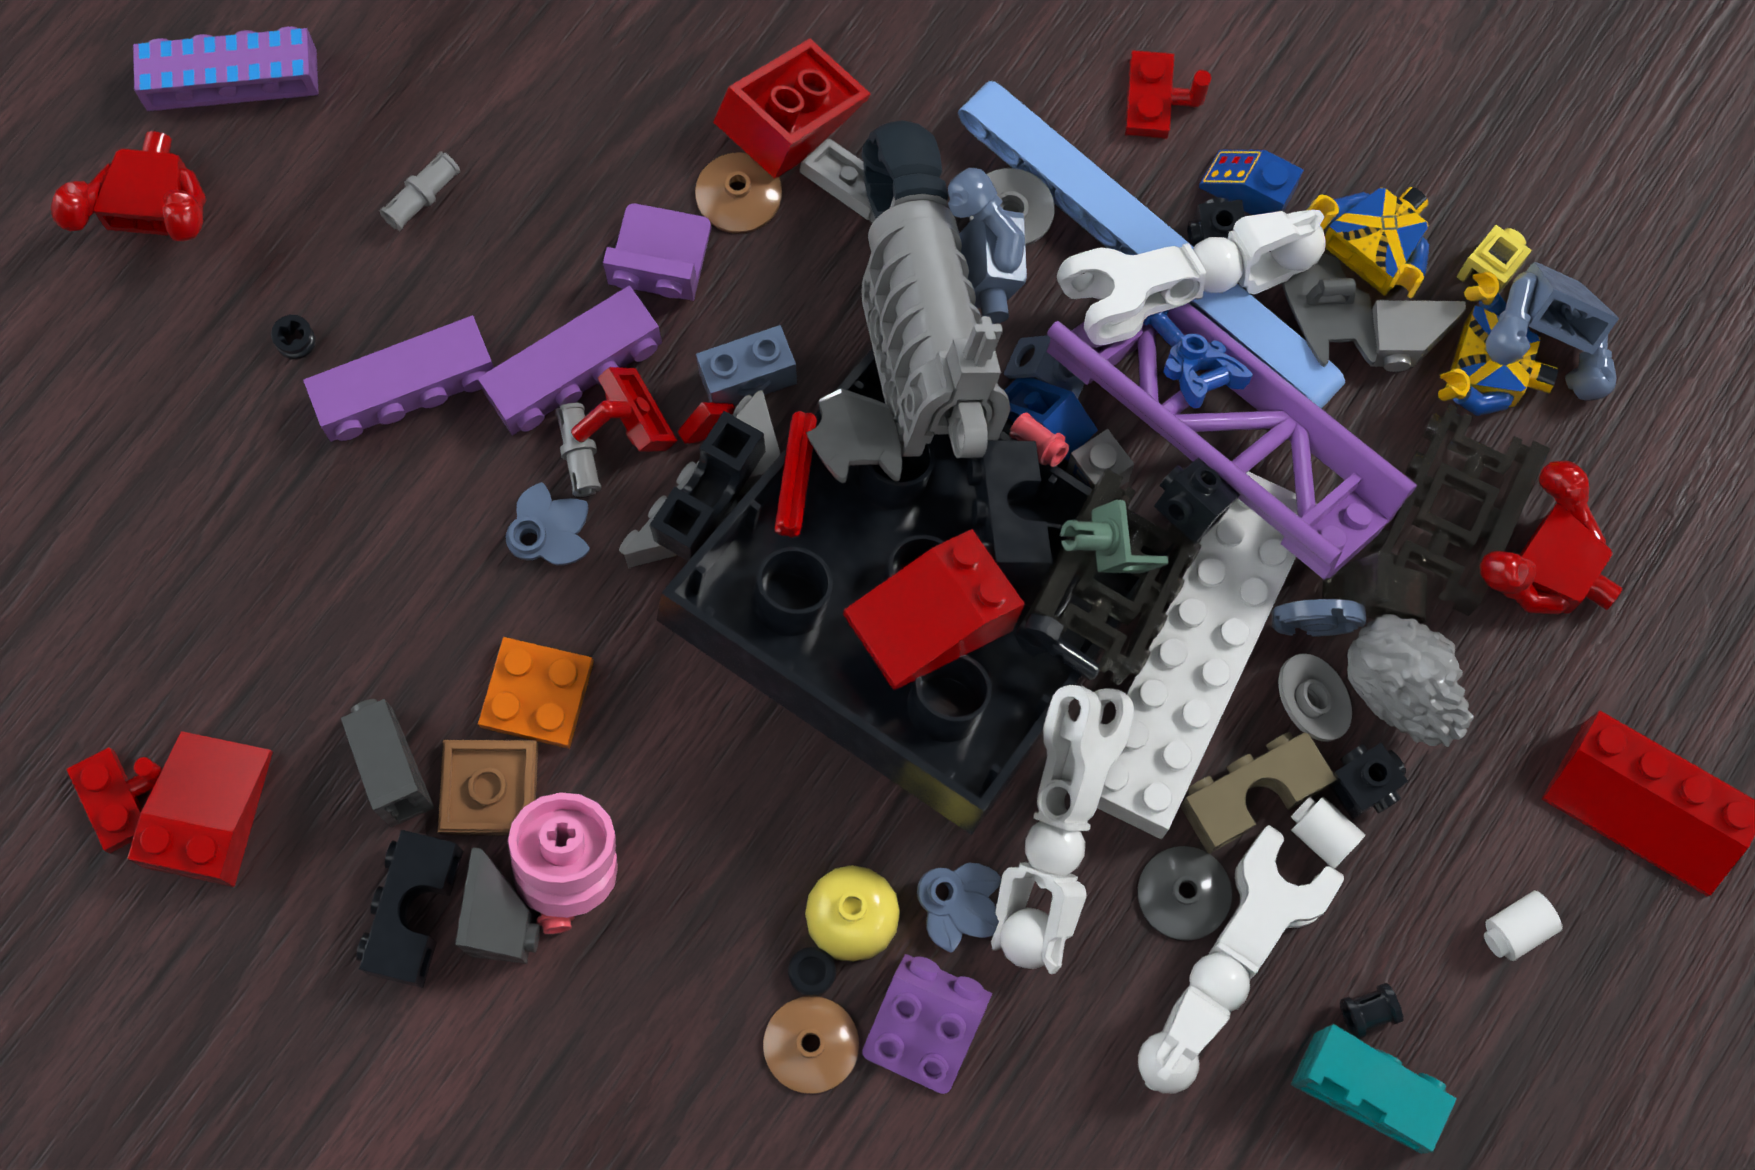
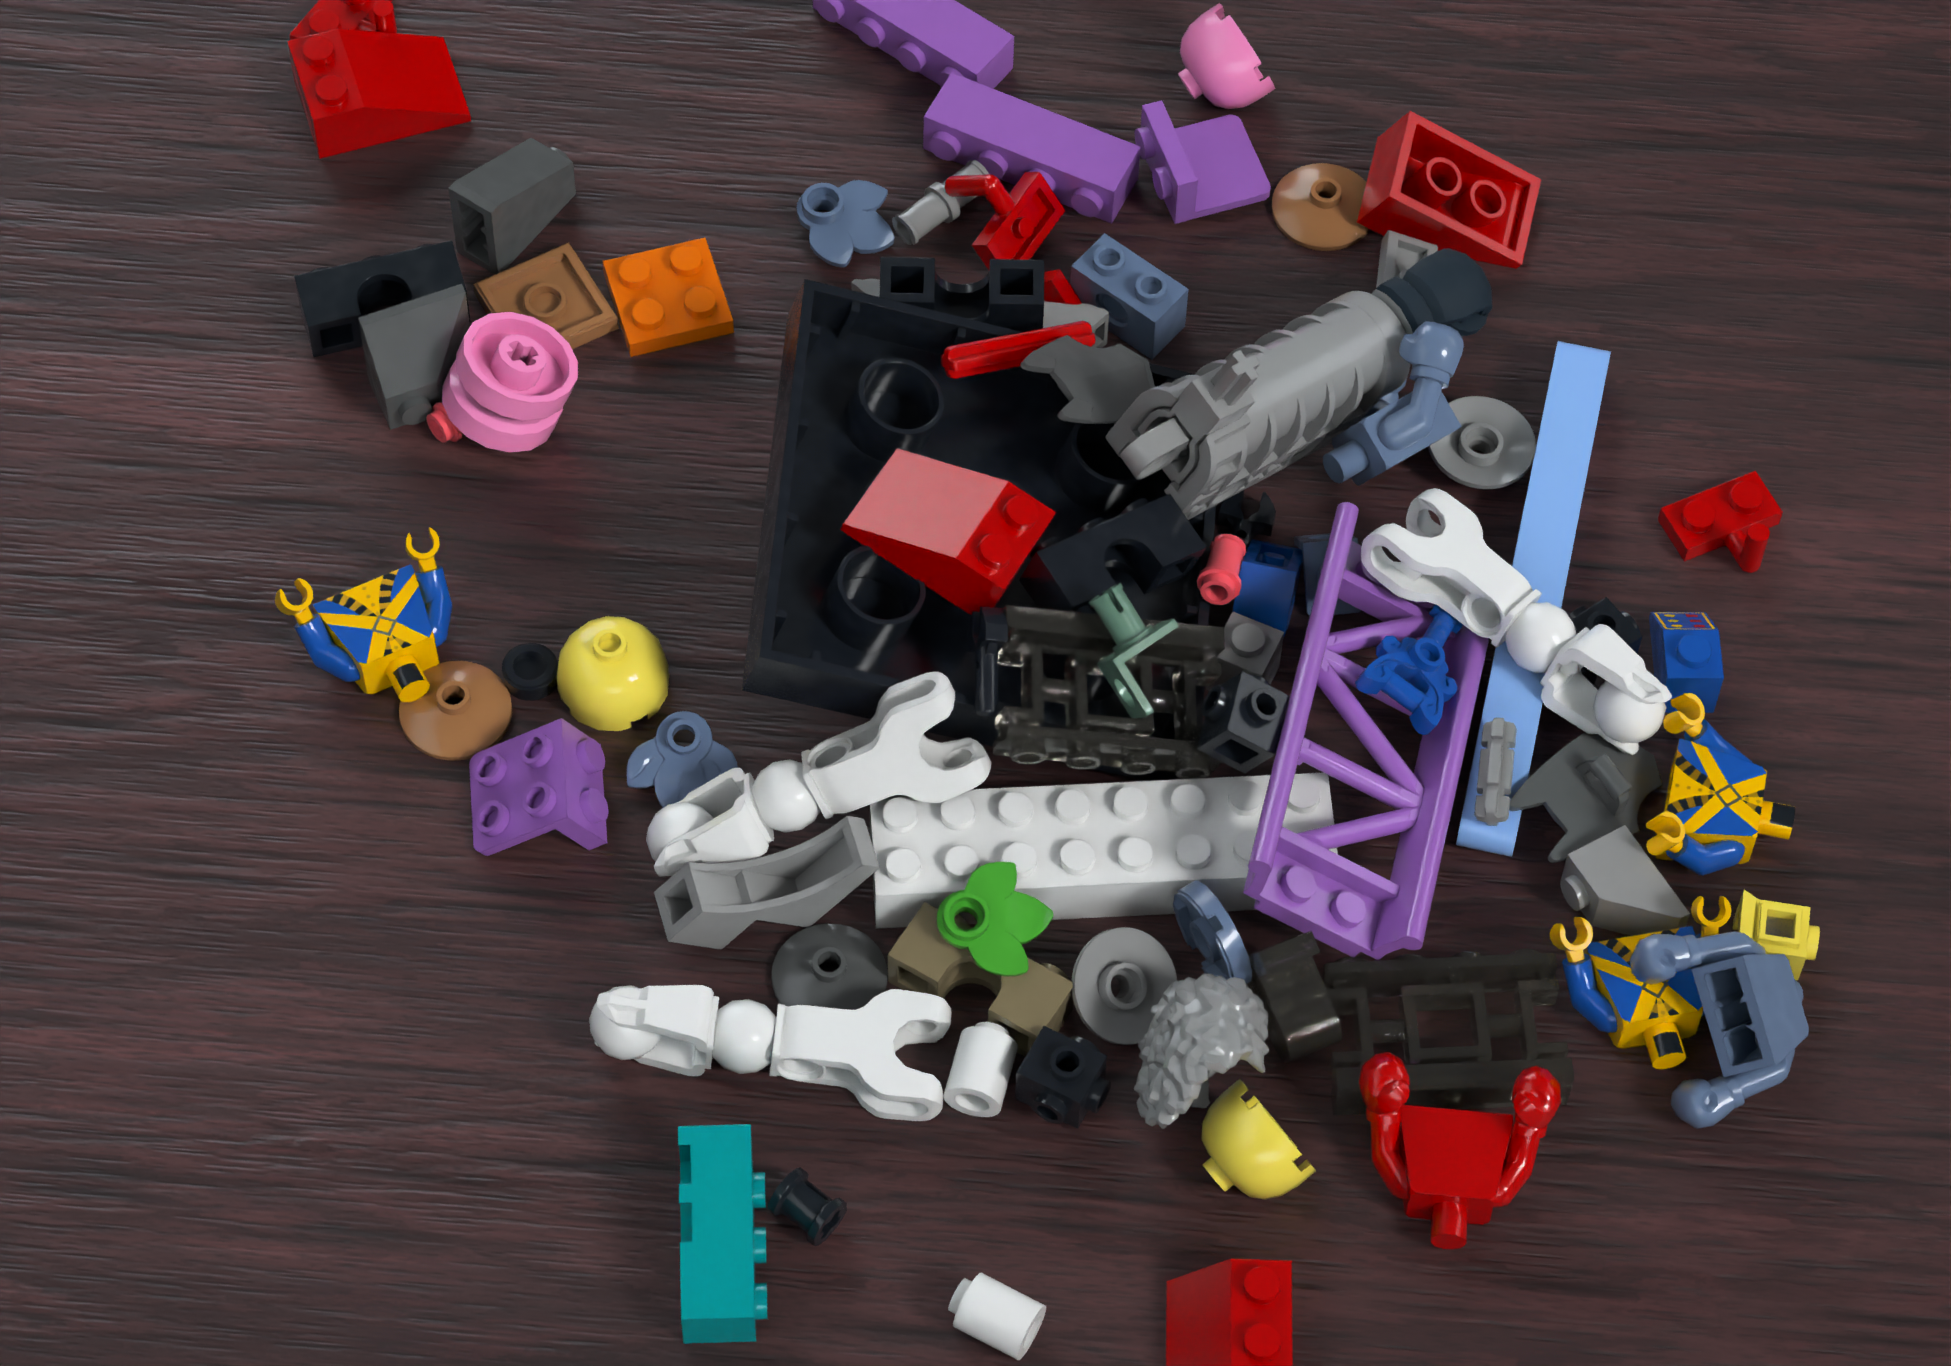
camera: 60 degrees right, 15 degrees down
(584, 186) = (1221, 62): none -> bright pink cylinder
(720, 1066) = (381, 629): none -> torso
(1111, 900) = (792, 887): none -> light grey arch
(1238, 754) = (1002, 919): none -> bright green plate
(1296, 357) = (1495, 771): none -> light grey axle
(1496, 684) = (1250, 1147): none -> light yellow cylinder

